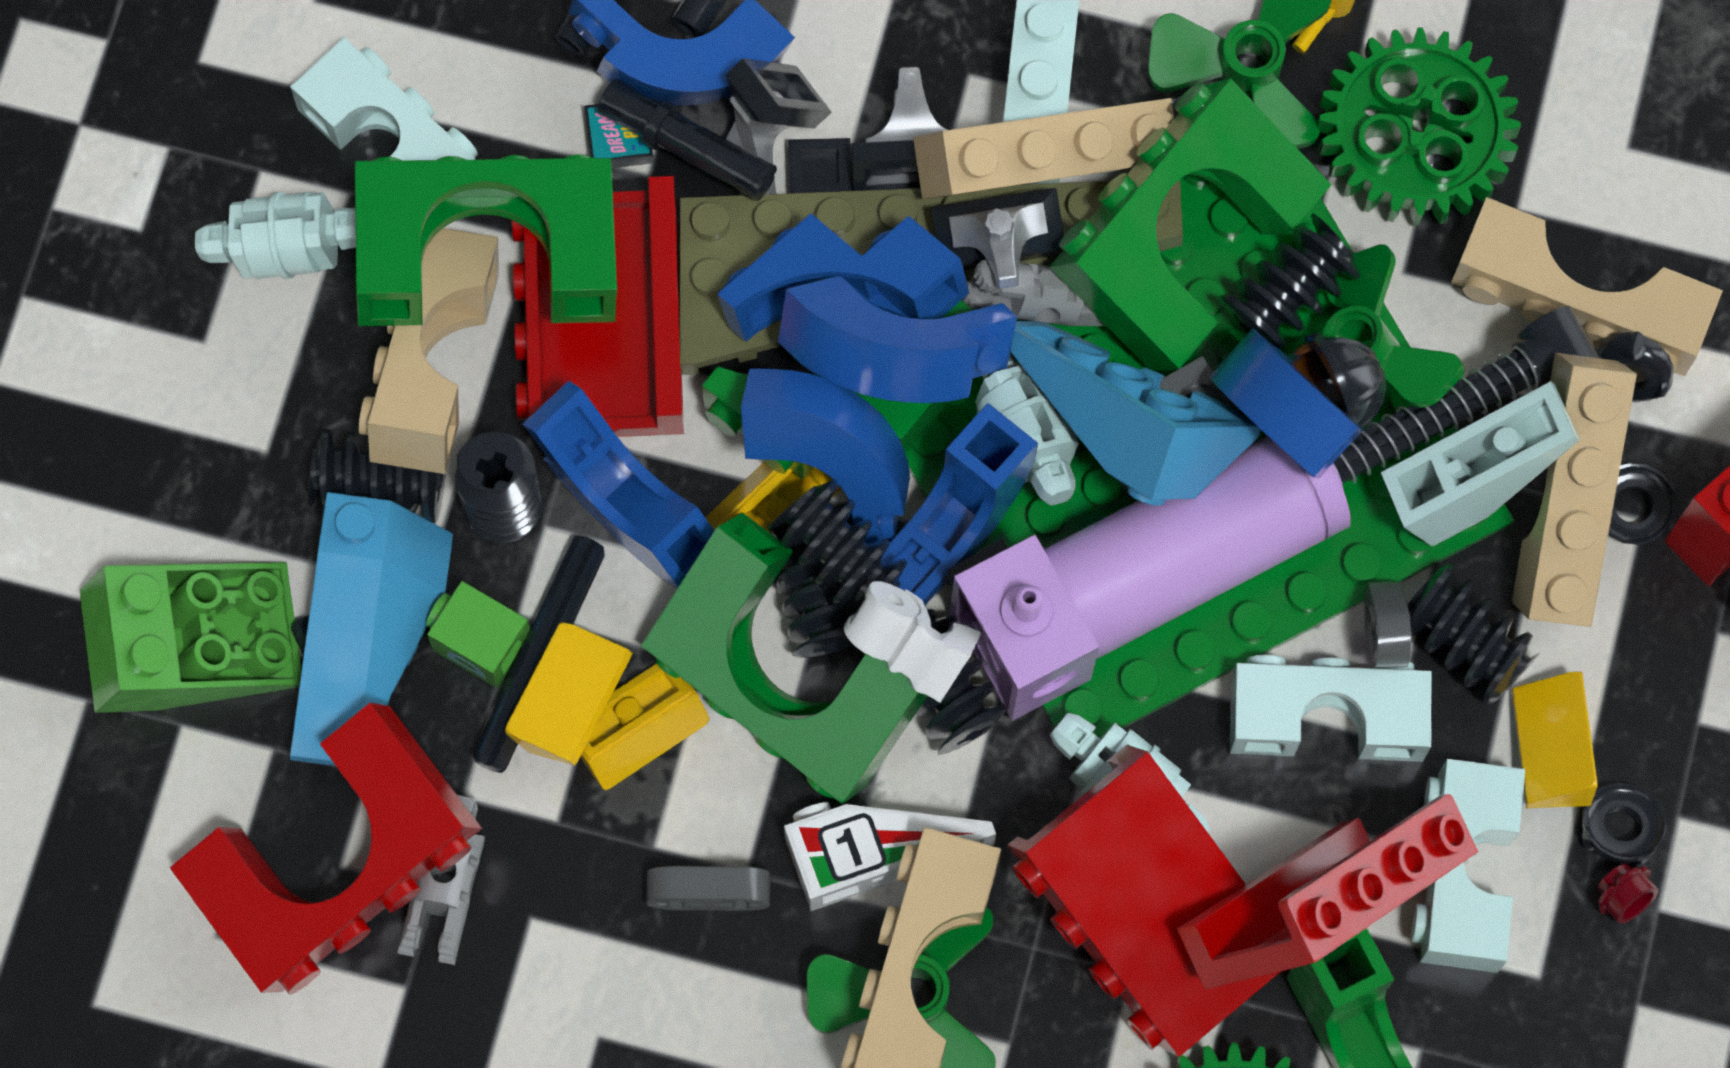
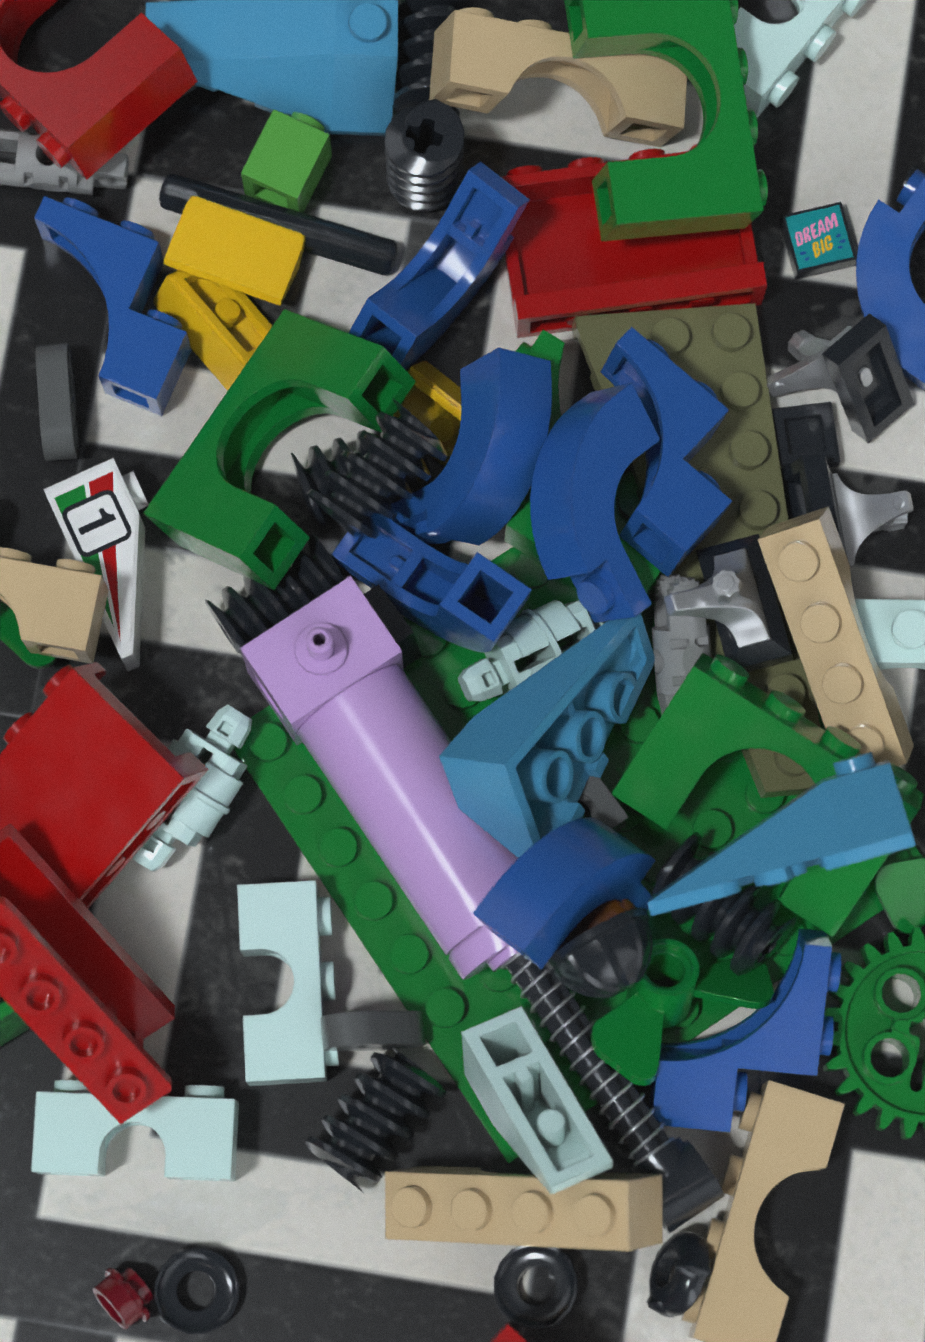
camera: 85 degrees right, 5 degrees up
(665, 798) = (142, 350): none -> blue arch
(666, 128) = (820, 275): black pin -> none
(898, 629) = (290, 522): white leg -> none
(1243, 149) = (829, 824): none -> dark azure wedge
(1425, 244) = (699, 1078): none -> blue arch
(1555, 742) = (271, 1212): yellow slope -> none

